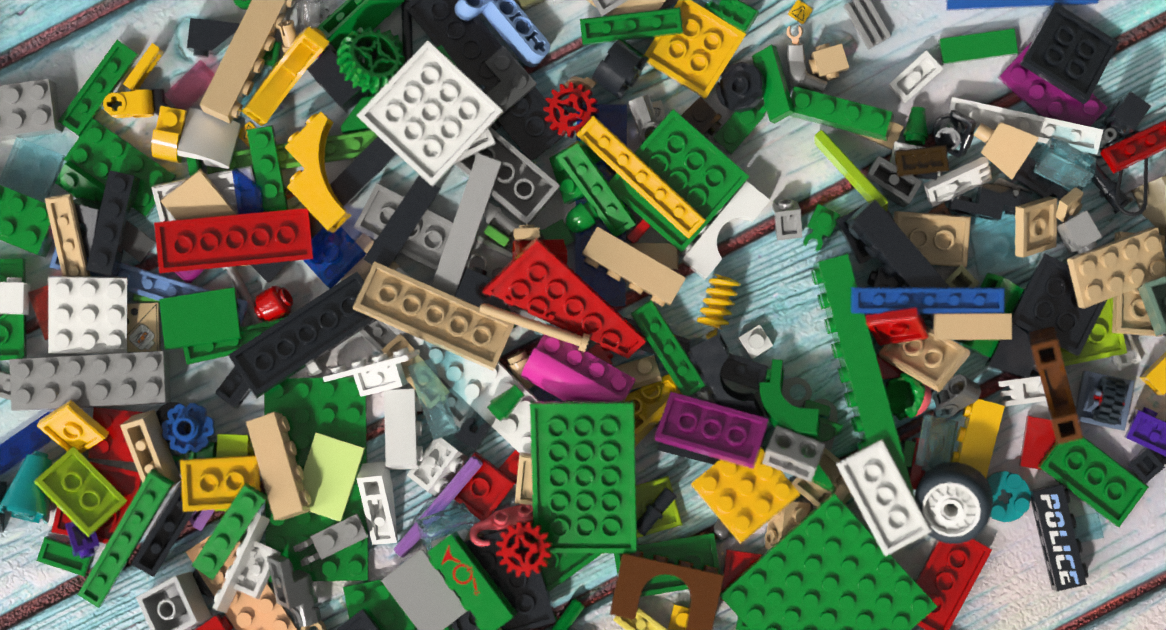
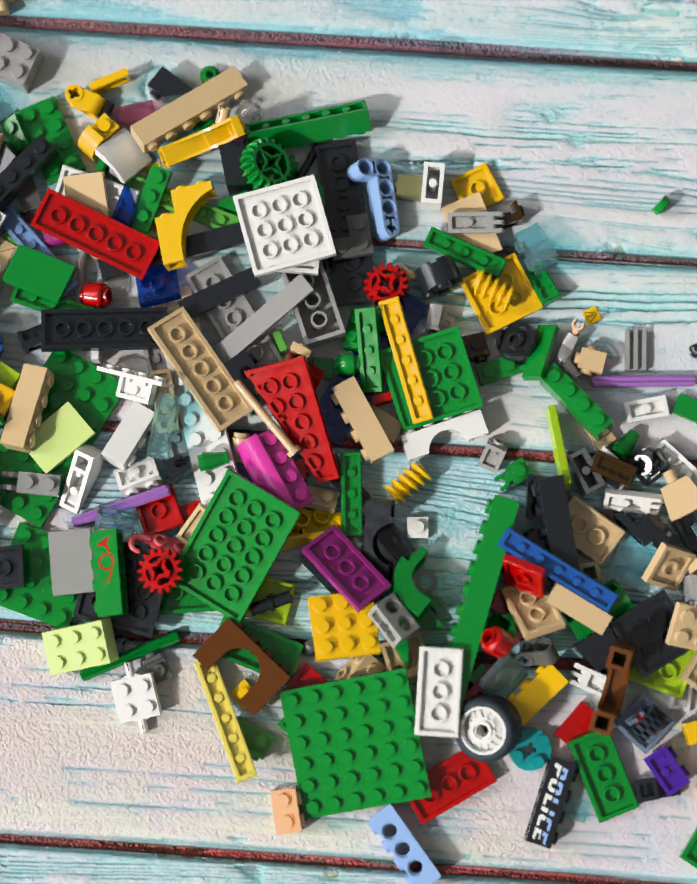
camera: 35 degrees right, 5 degrees down
(97, 87) = (78, 74): green plate -> none
(498, 219) = (288, 329): light grey pin -> none
(685, 47) = (493, 290): none -> yellow piece
(894, 48) = (643, 380): none -> medium lavender axle
(911, 411) = (497, 641): none -> red head

